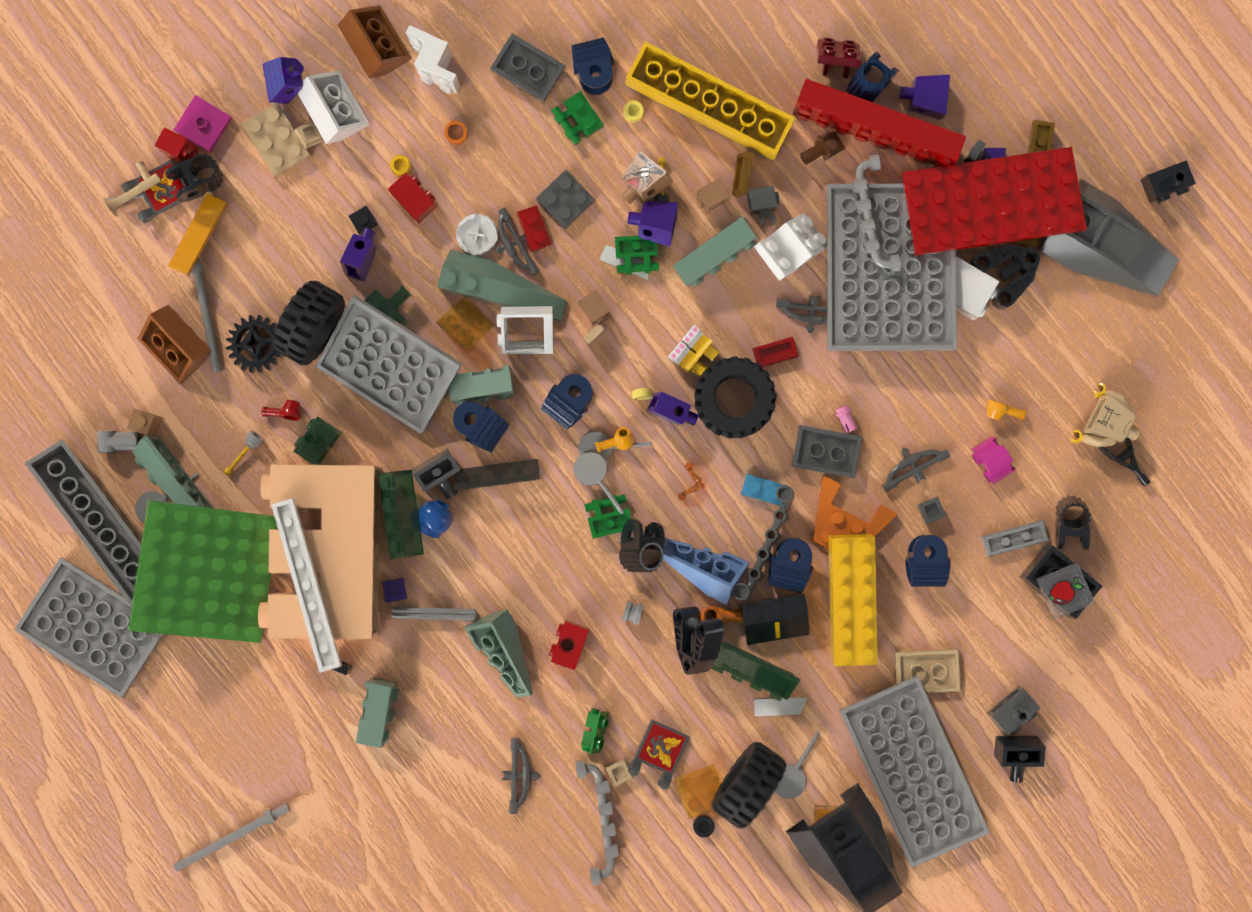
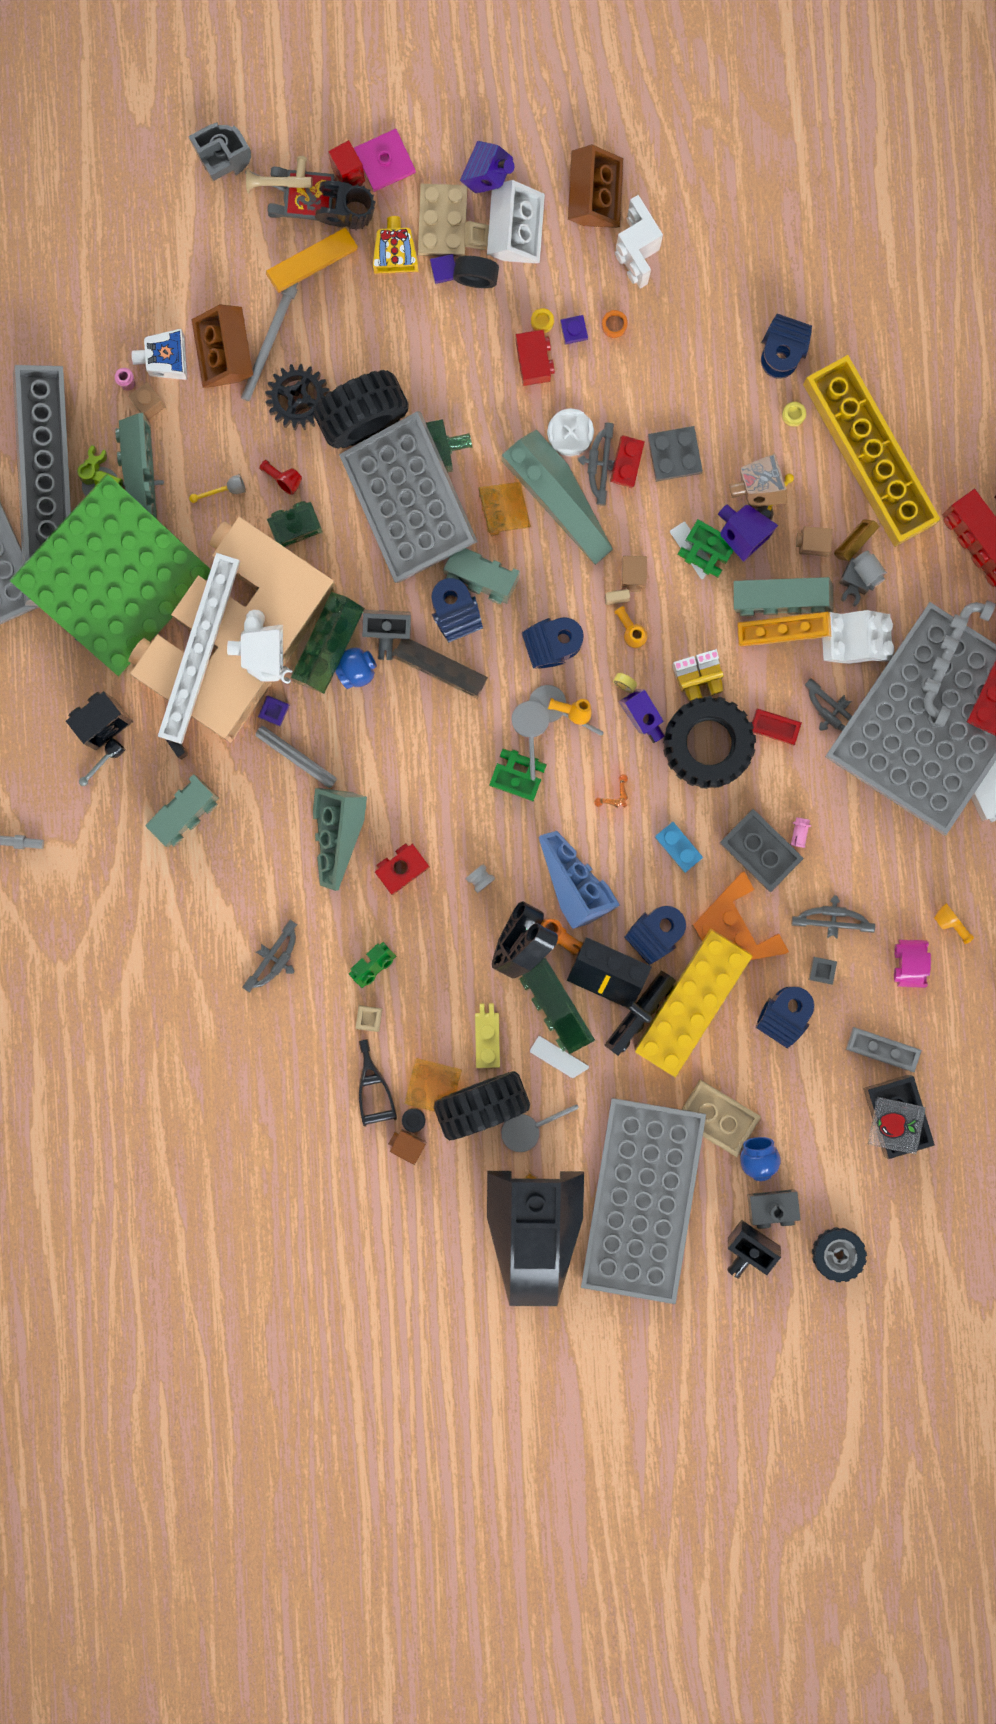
camera: 35 degrees right, 0 degrees up
(74, 197) = (221, 149): none -> dark grey brick
(115, 416) = (122, 374): none -> bright pink pin
(117, 441) = (106, 400): light grey piece -> none
(134, 379) = (163, 355): none -> torso
(136, 503) = (89, 469): none -> lime bar
(254, 185) = (394, 249): none -> torso
(267, 688) = (98, 720): none -> black brick
(293, 700) = (113, 750): none -> hinge
(301, 175) = (443, 268): none -> dark purple tile
(326, 162) = (476, 272): none -> black tyre
(353, 554) = (261, 649): none -> white torso
(359, 255) = (448, 378): dark purple torso -> none
(362, 219) = (473, 348): black plate -> none
(428, 157) = (574, 329): none -> dark purple plate
(526, 347) = (546, 566): white window -> none
(527, 67) = (722, 307): dark grey plate -> none
(582, 113) = (744, 385): green plate -> none
(608, 828) = (323, 1062): light grey bar -> none
(618, 350) = (630, 628): none -> light orange bar
(642, 551) = (527, 826): black piece -> none
(642, 807) = (369, 1080): none -> black piece
(659, 749) = (421, 1022): flag -> none
(712, 849) = (406, 1146): none -> dark orange brick
(717, 727) = (487, 1038): none -> light yellow hinge
(734, 276) = (784, 629): none -> light orange tile
(743, 591) = (596, 926): dark grey bar -> none
(767, 190) = (869, 569): none -> light grey brick
(818, 633) = (640, 1013): none -> black plate
(821, 149) = (945, 566): reddish brown bracket -> none
(979, 681) = (760, 1158): none -> blue piece
(1073, 707) = (853, 1254): none -> black wheel
(1077, 527) = (942, 1073): black piece -> none

